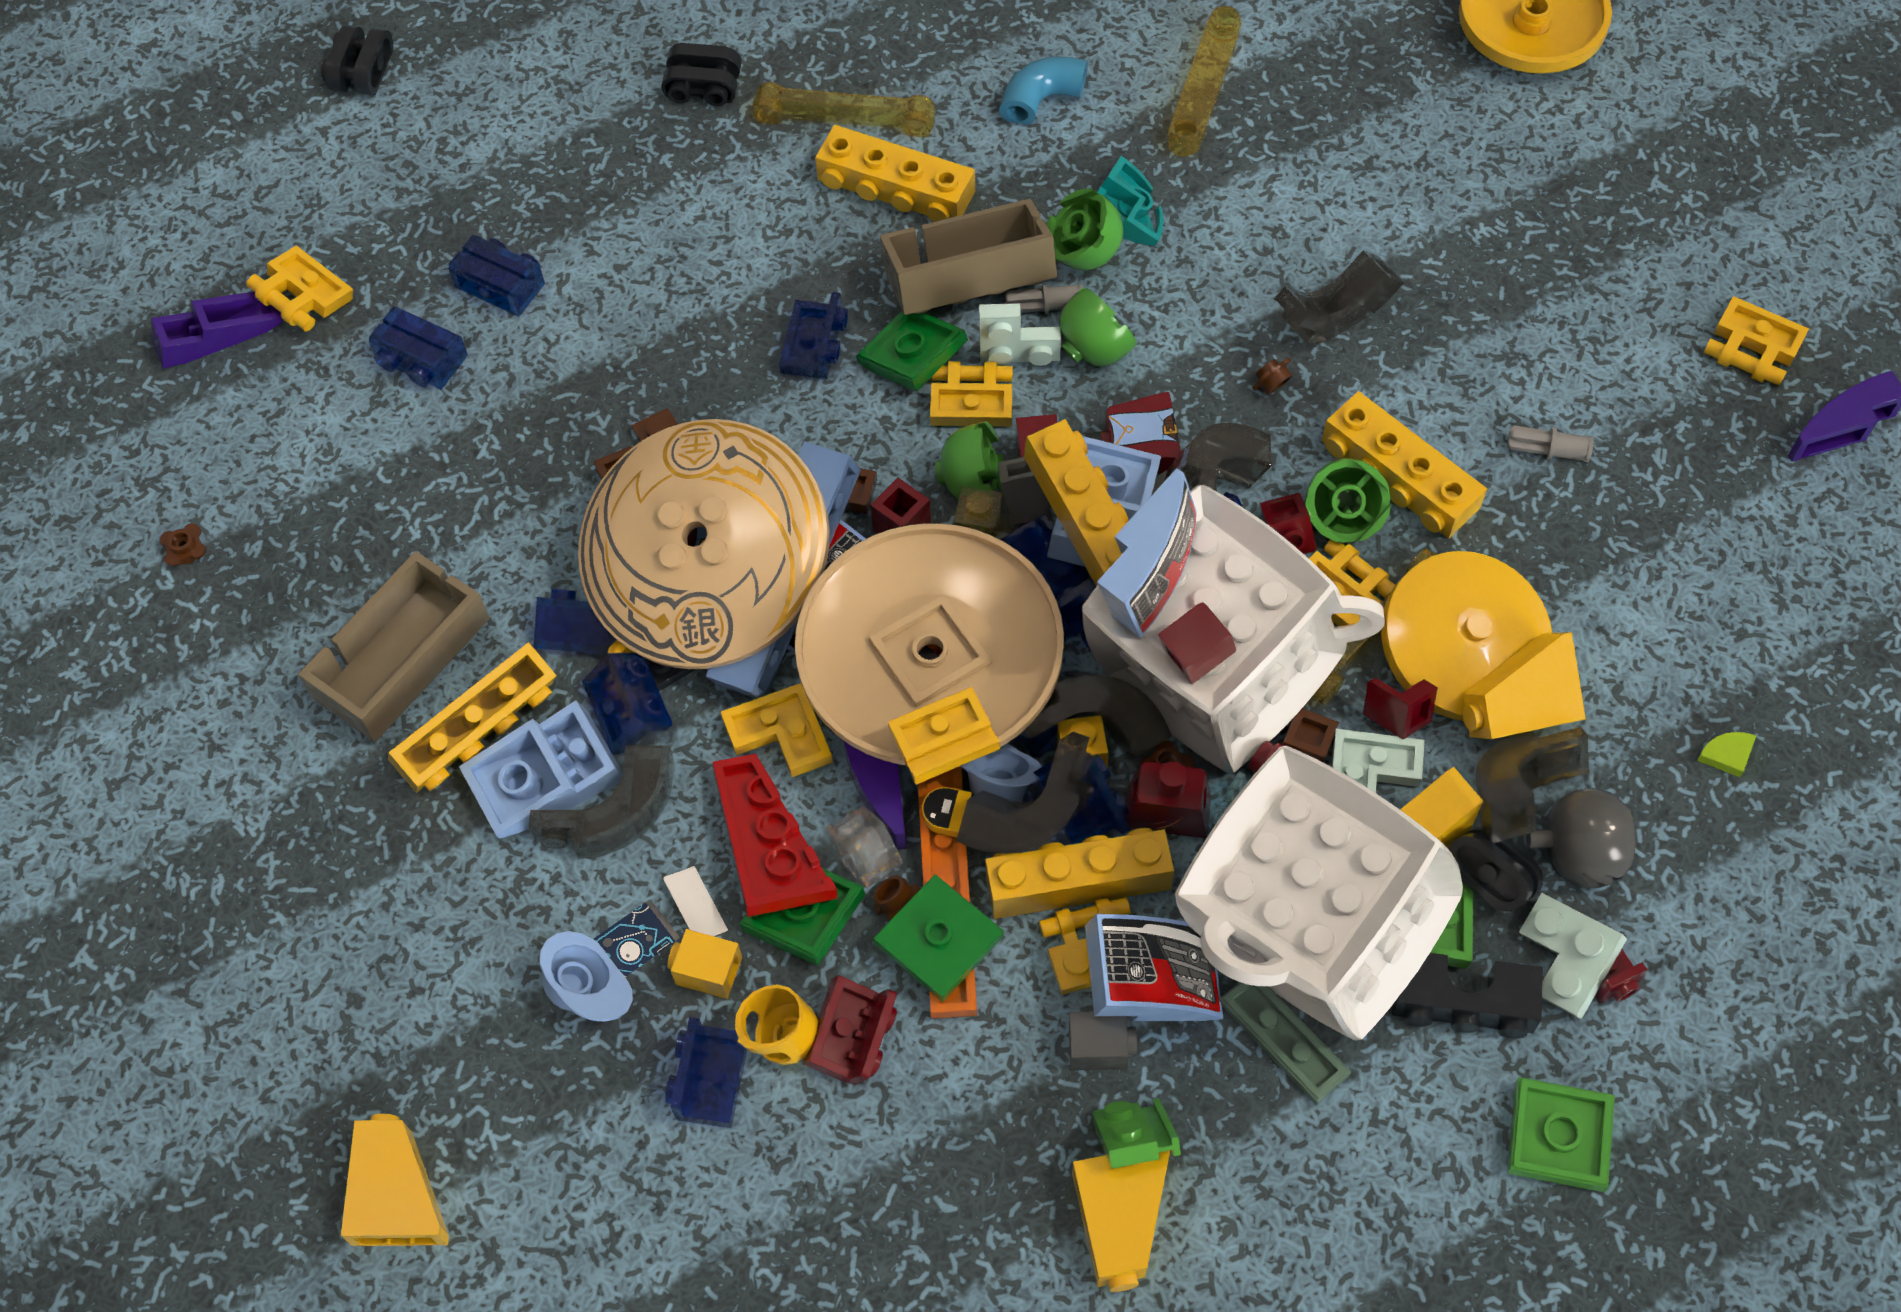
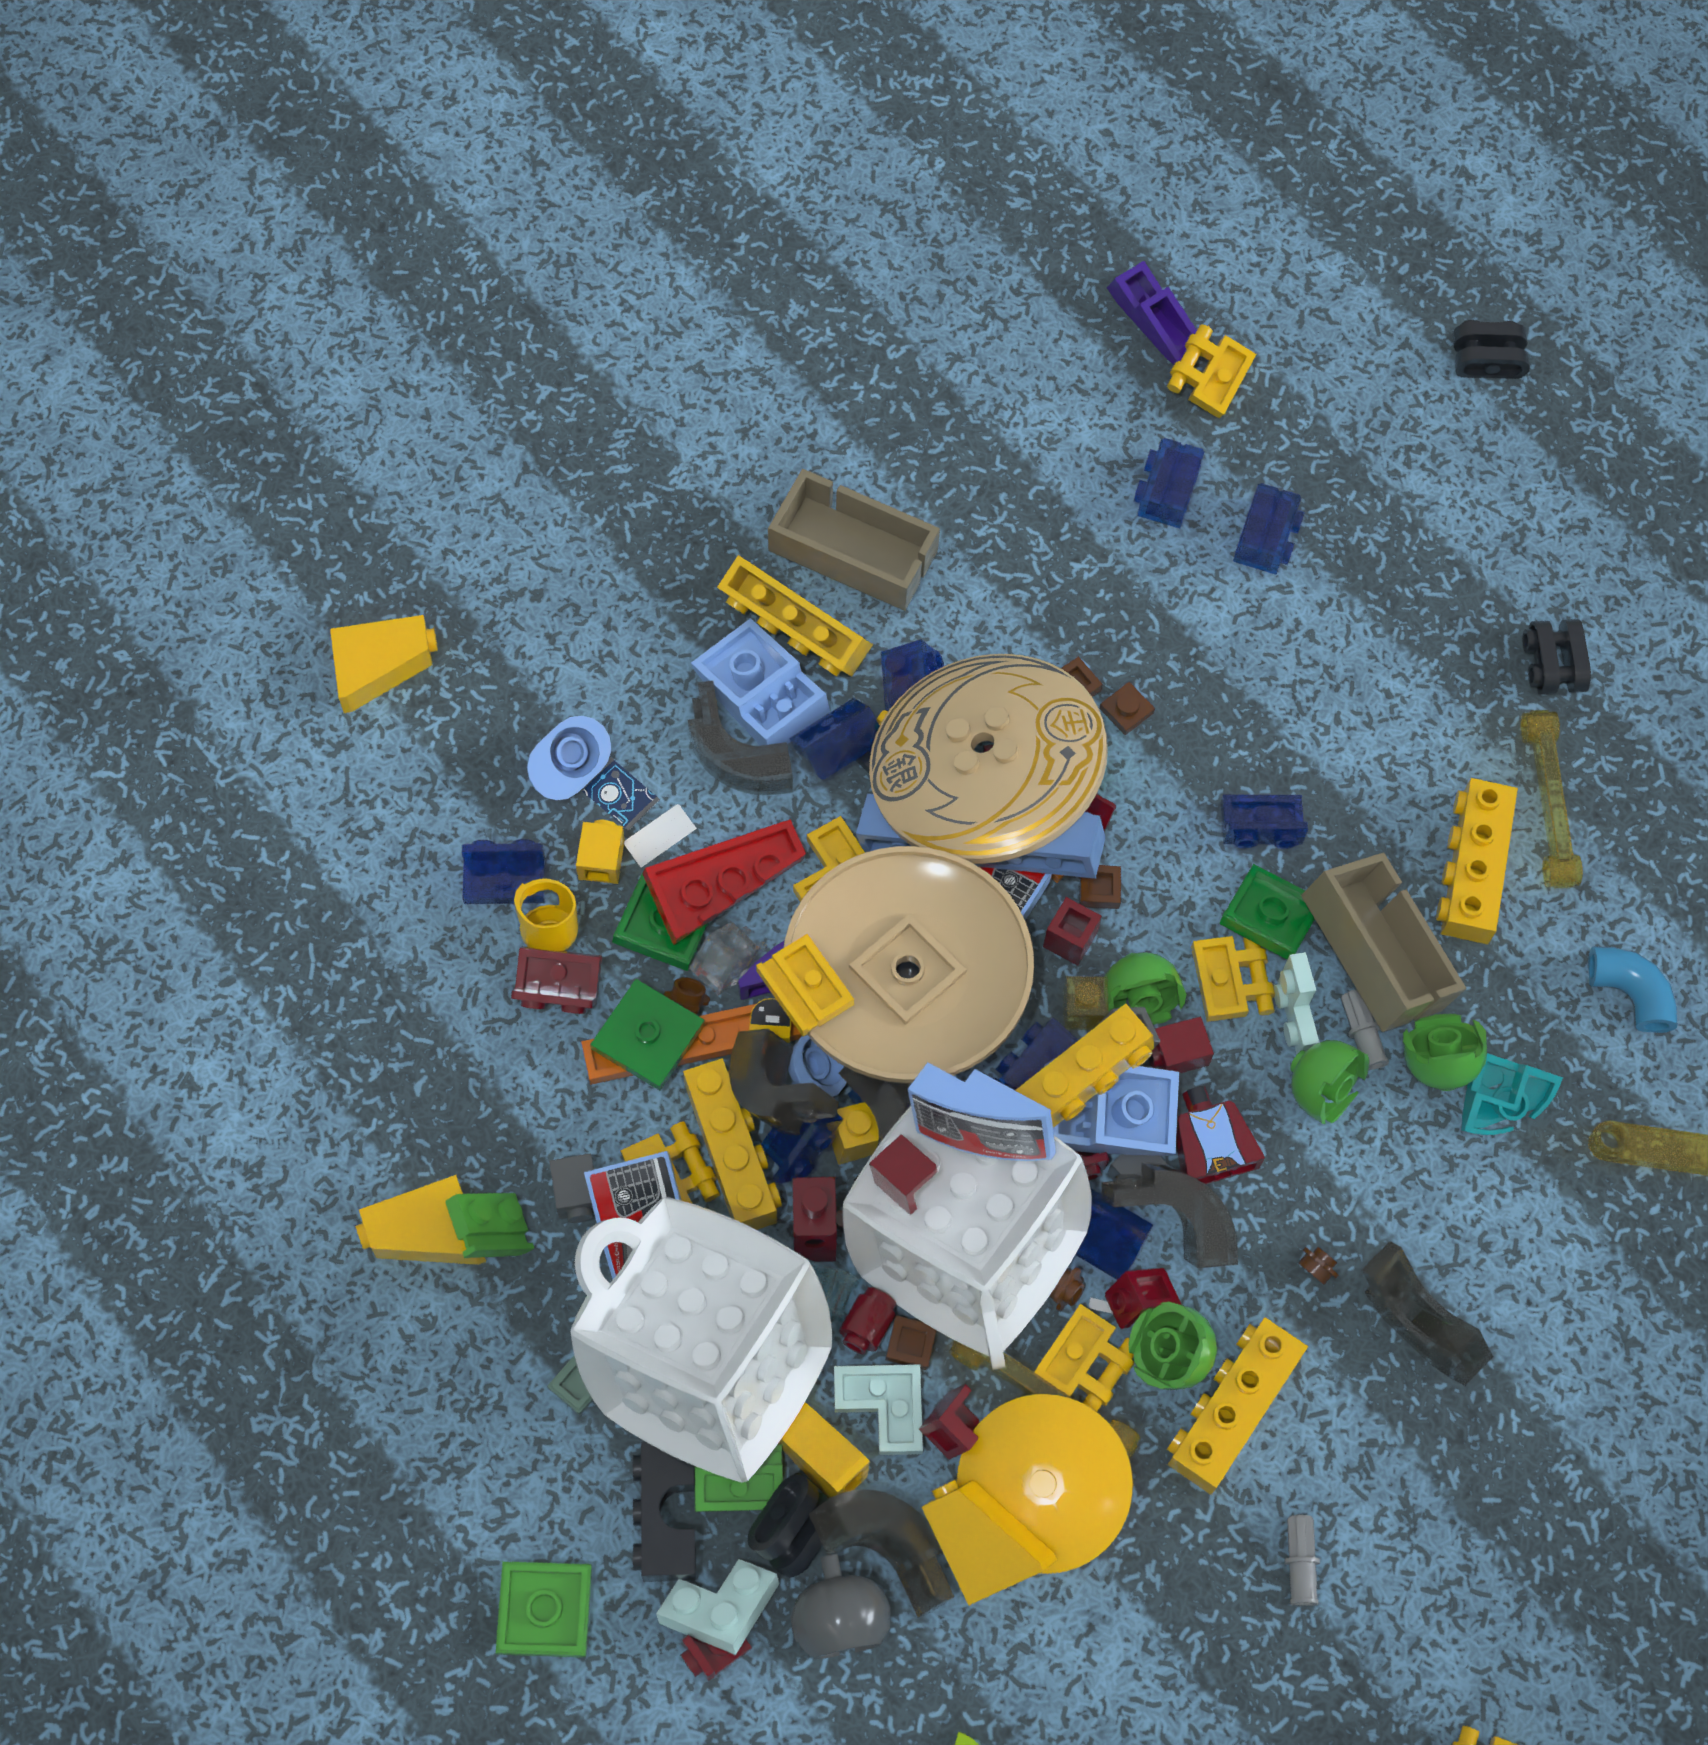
camera: 75 degrees right, 5 degrees up
(187, 553) = (925, 362): reddish brown plate -> none

